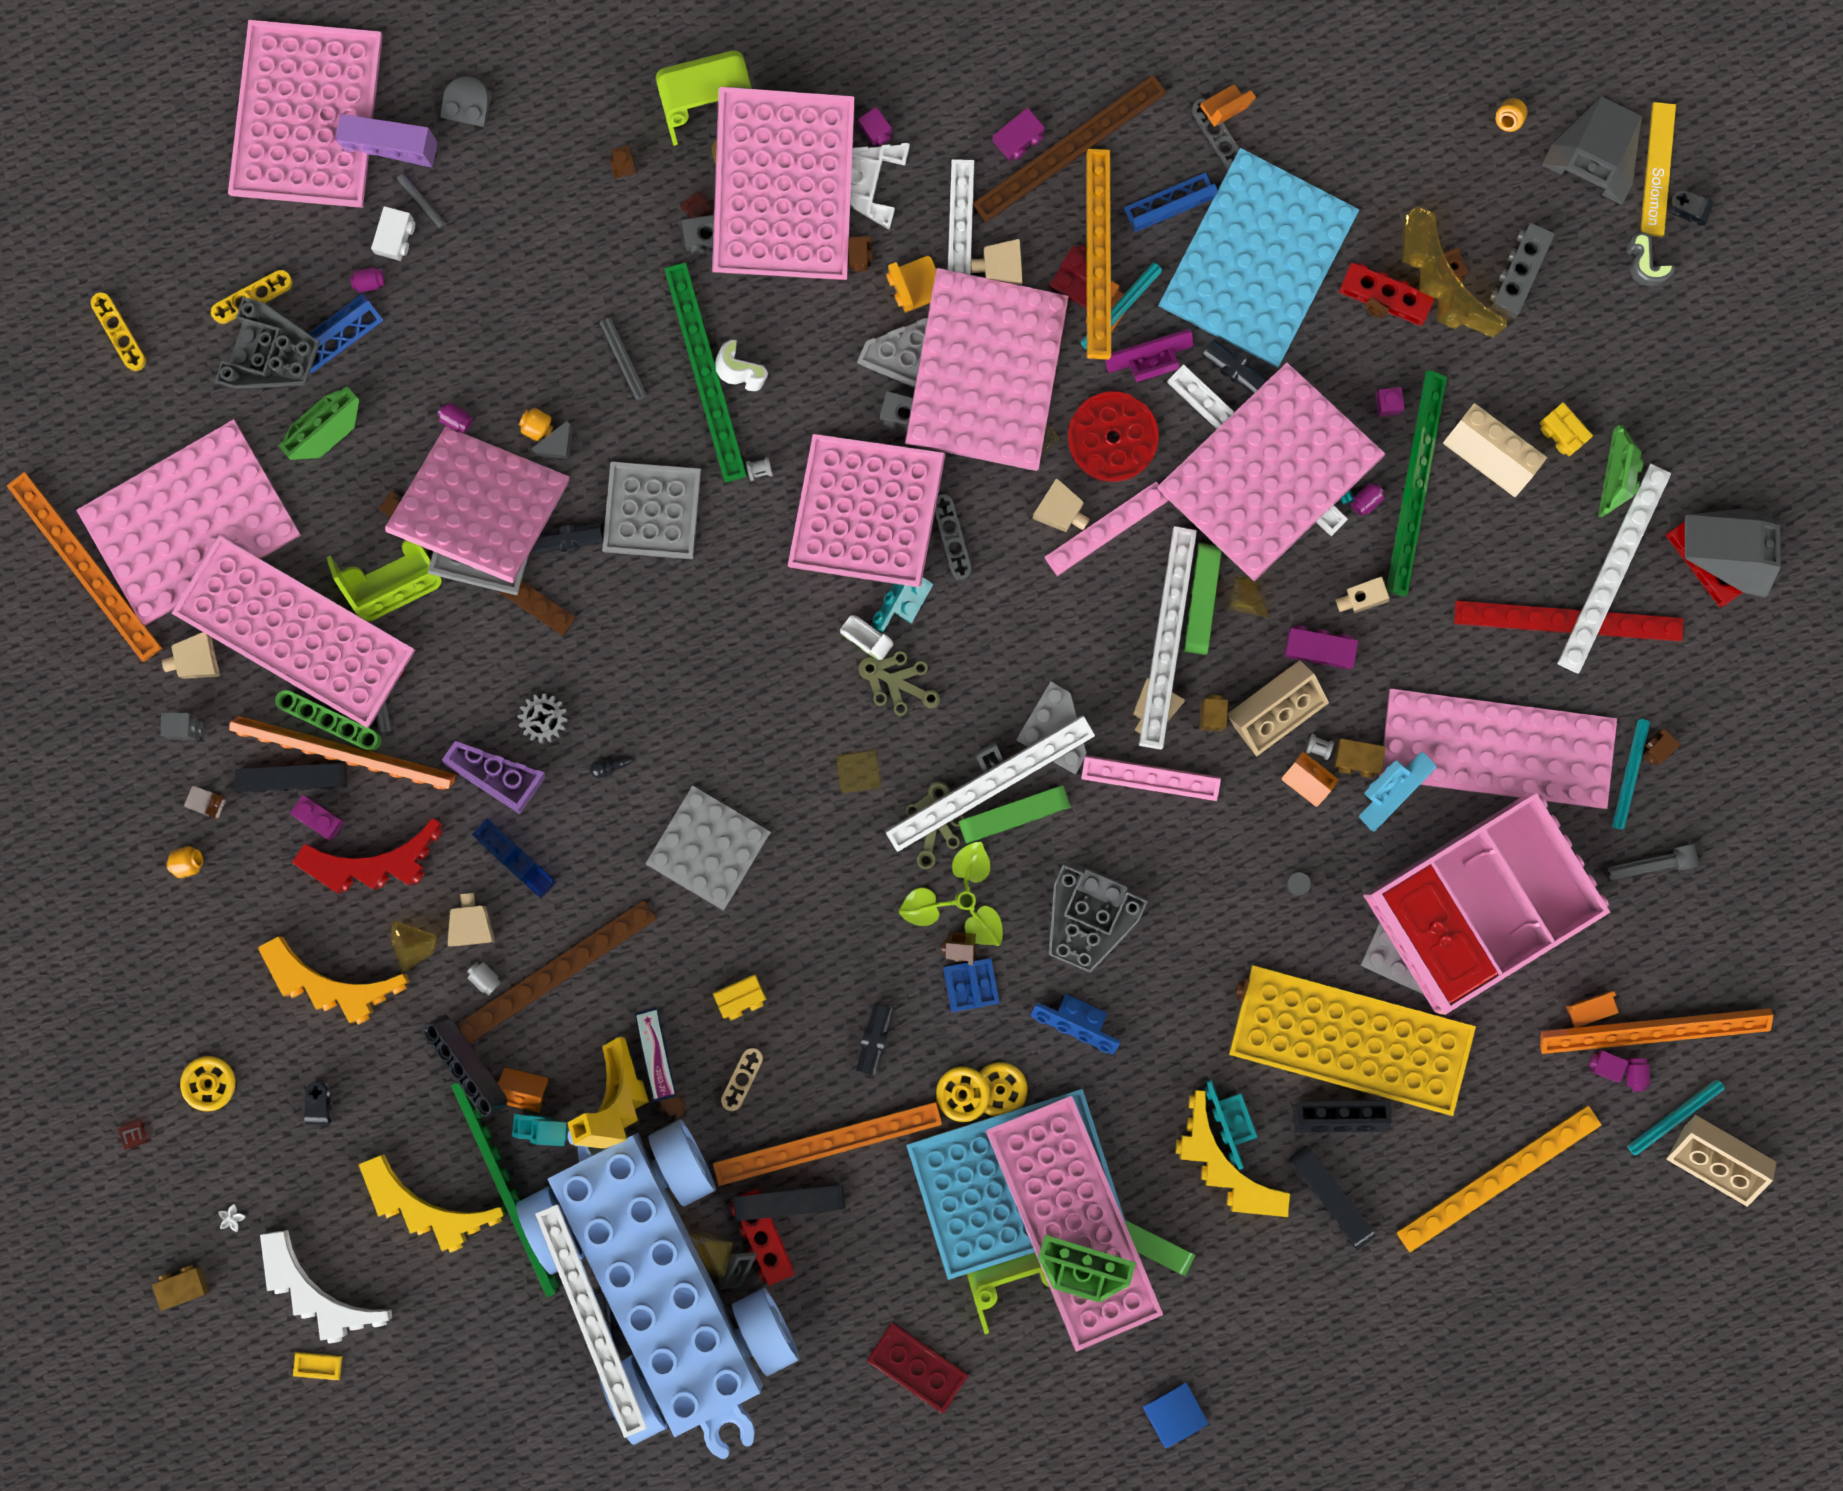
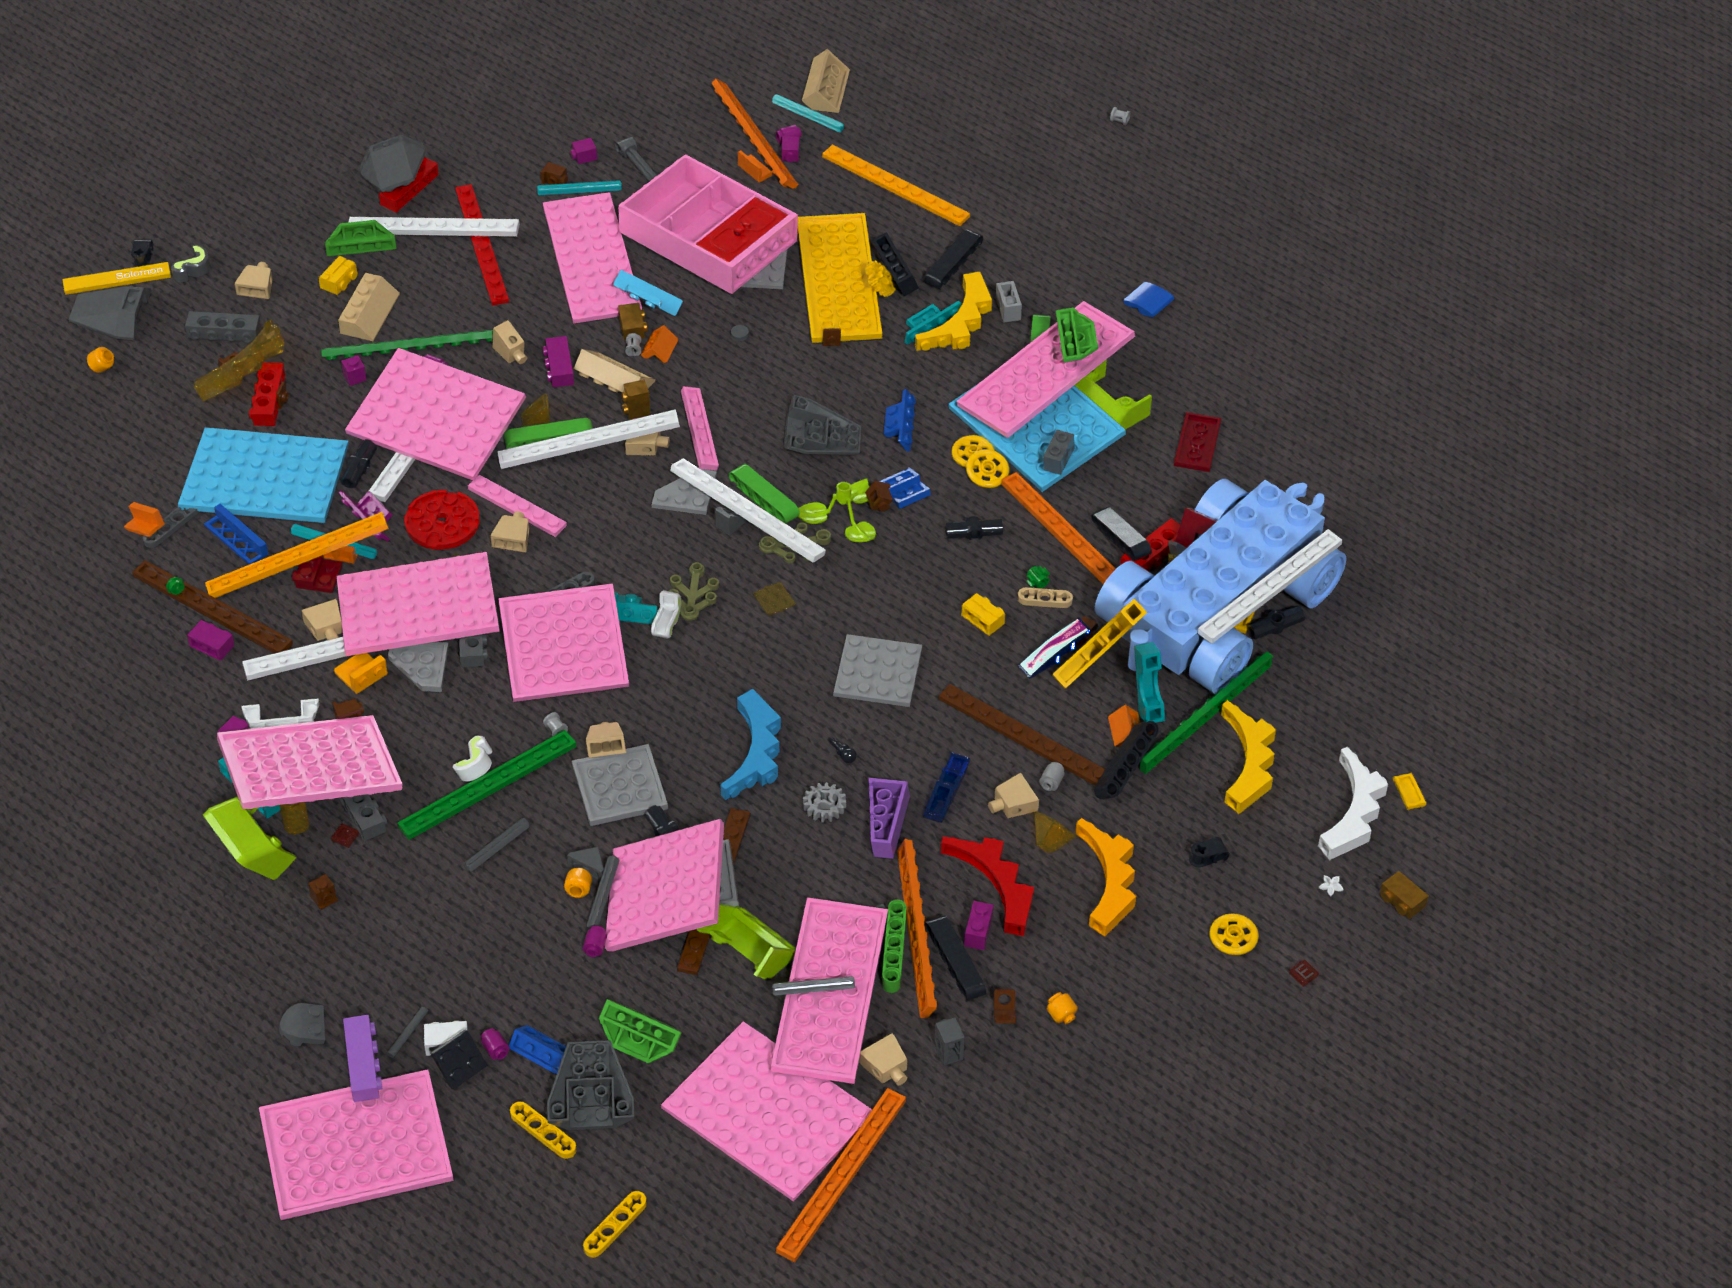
camera: 115 degrees left, 35 degrees down
(294, 612) = (813, 985): none -> dark grey axle
(356, 236) = (458, 1059): none -> black plate
(510, 444) = (603, 891): none -> dark grey axle
(676, 690) = (758, 764): none -> dark azure arch
(712, 512) = (605, 740): none -> tan torso
(752, 1287) = (1192, 525): none -> dark red tile
(769, 1081) = (1038, 577): none -> green gear
(938, 1182) = (1058, 452): none -> dark grey brick
(1107, 112) = (175, 585): none -> green plate
(1225, 1232) = (1008, 301): none -> light grey brick
(1317, 1085) = (880, 278): none -> yellow gear
(1590, 329) = (255, 281): none -> tan torso
(1694, 799) = (583, 151): none -> magenta brick

